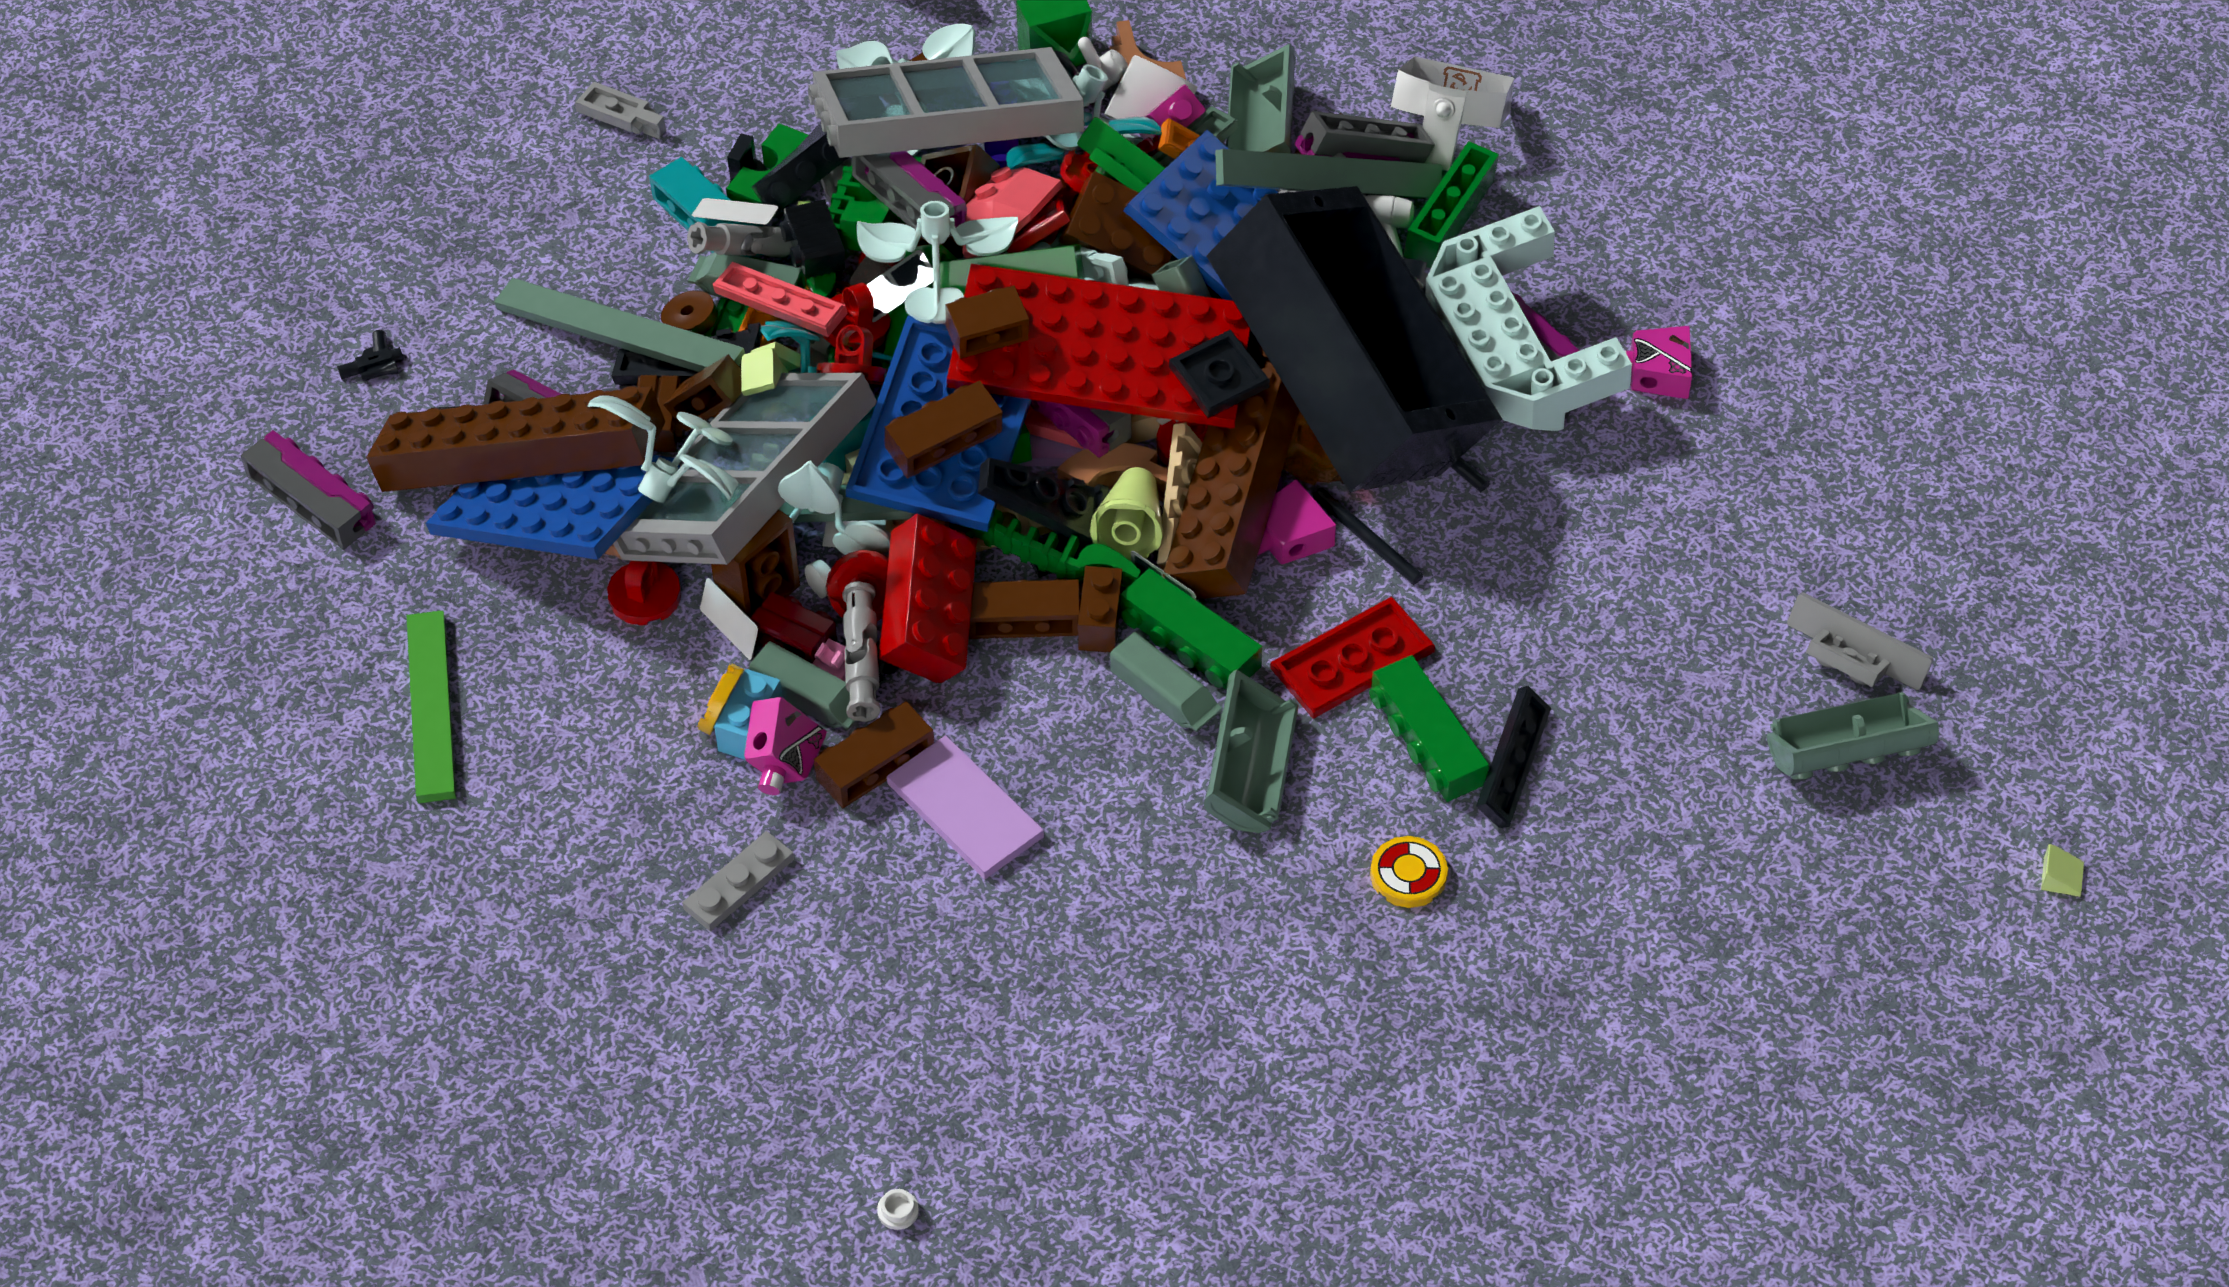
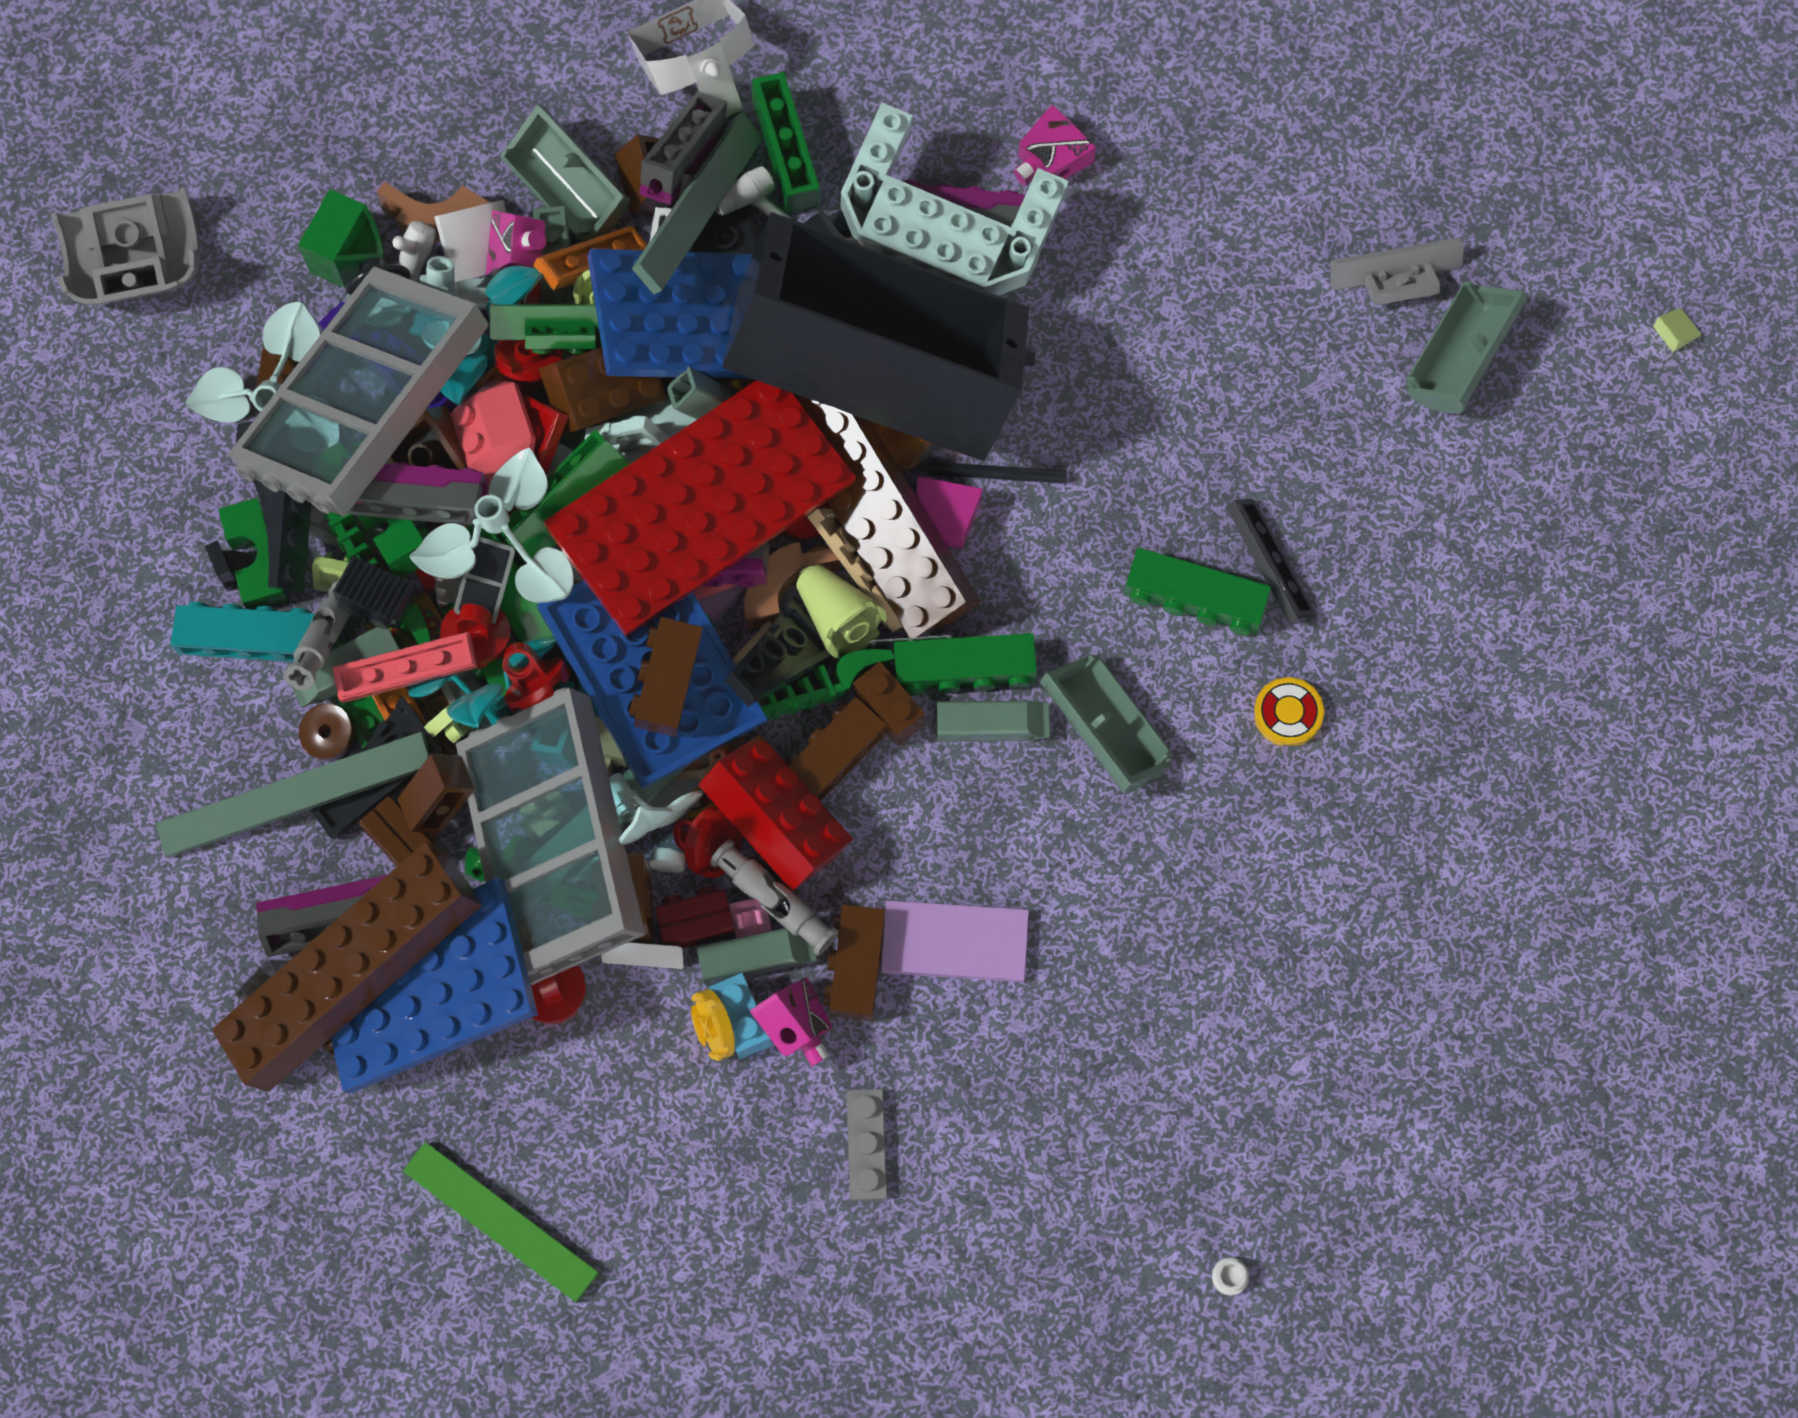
camera: 45 degrees left, 20 degrees up
(309, 489) = (210, 1141): dark grey piece -> none
(374, 360) = (129, 988): black piece -> none
(620, 110) = (69, 602): light grey hinge -> none
(664, 474) = (515, 907): light aqua plant -> none
(735, 211) = (279, 619): white sticker -> none
(760, 371) = (469, 747): yellowish green slope -> none
(986, 321) = (617, 564): reddish brown brick -> none
(1219, 373) = (814, 452): black tile -> none
(1344, 658) = (1086, 579): red tile -> none

